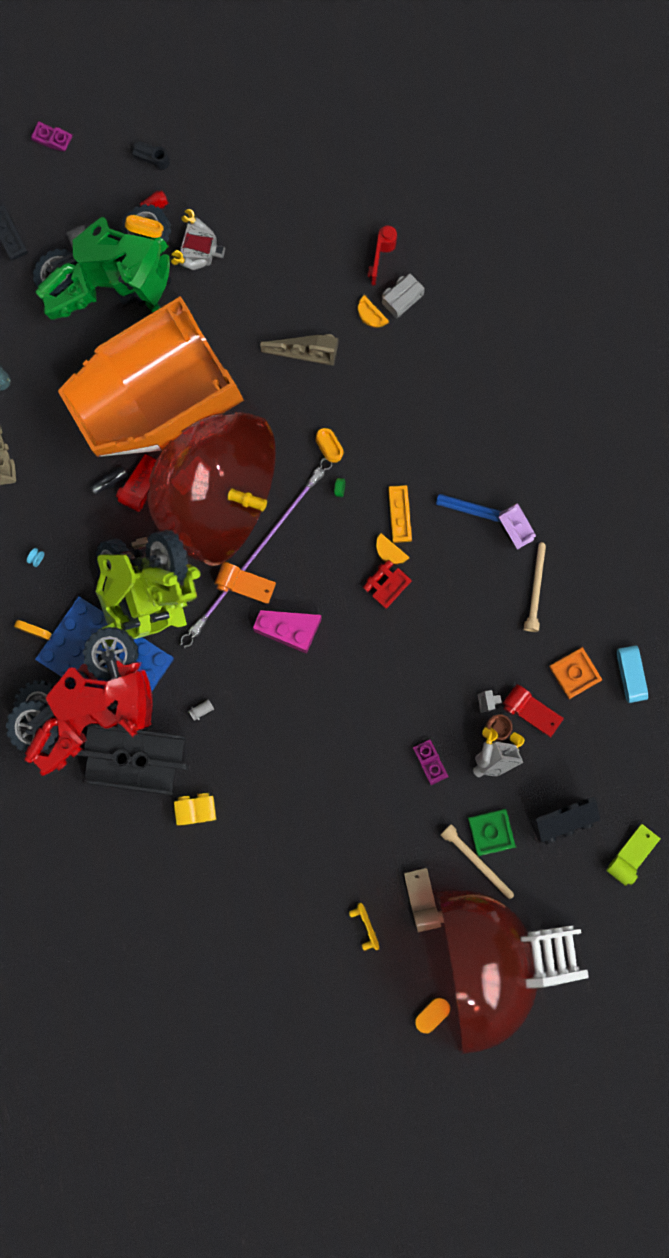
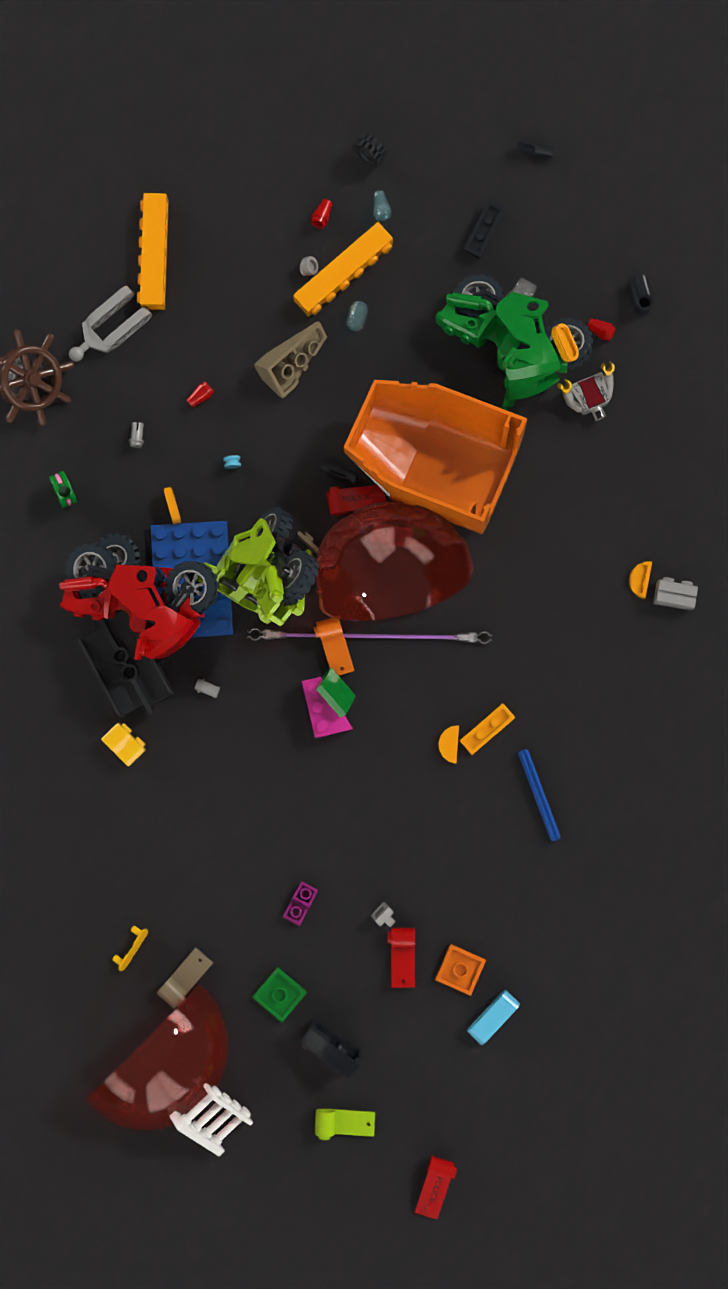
camera: 50 degrees right, 5 degrees up
(50, 137) = (594, 201): magenta slope -> none
(247, 499) = (404, 596): yellow pin -> none
(282, 607) = (336, 692): none -> green tile
(309, 348) = (572, 552): dark tan wedge -> none
(329, 445) = (501, 628): light orange tile -> none
(339, 487) = (472, 663): green tile -> none
(386, 243) = (712, 546): red door -> none
(391, 588) = (420, 768): red plate -> none
(432, 1015) = (100, 1051): light orange tile -> none
(451, 835) = (253, 964): tan piece -> none
(497, 756) = (342, 957): light grey torso -> none
(501, 725) = (367, 940): copper wheel -> none
(517, 525) = (546, 834): lavender hinge -> none
(532, 623) = (476, 903): tan piece -> none

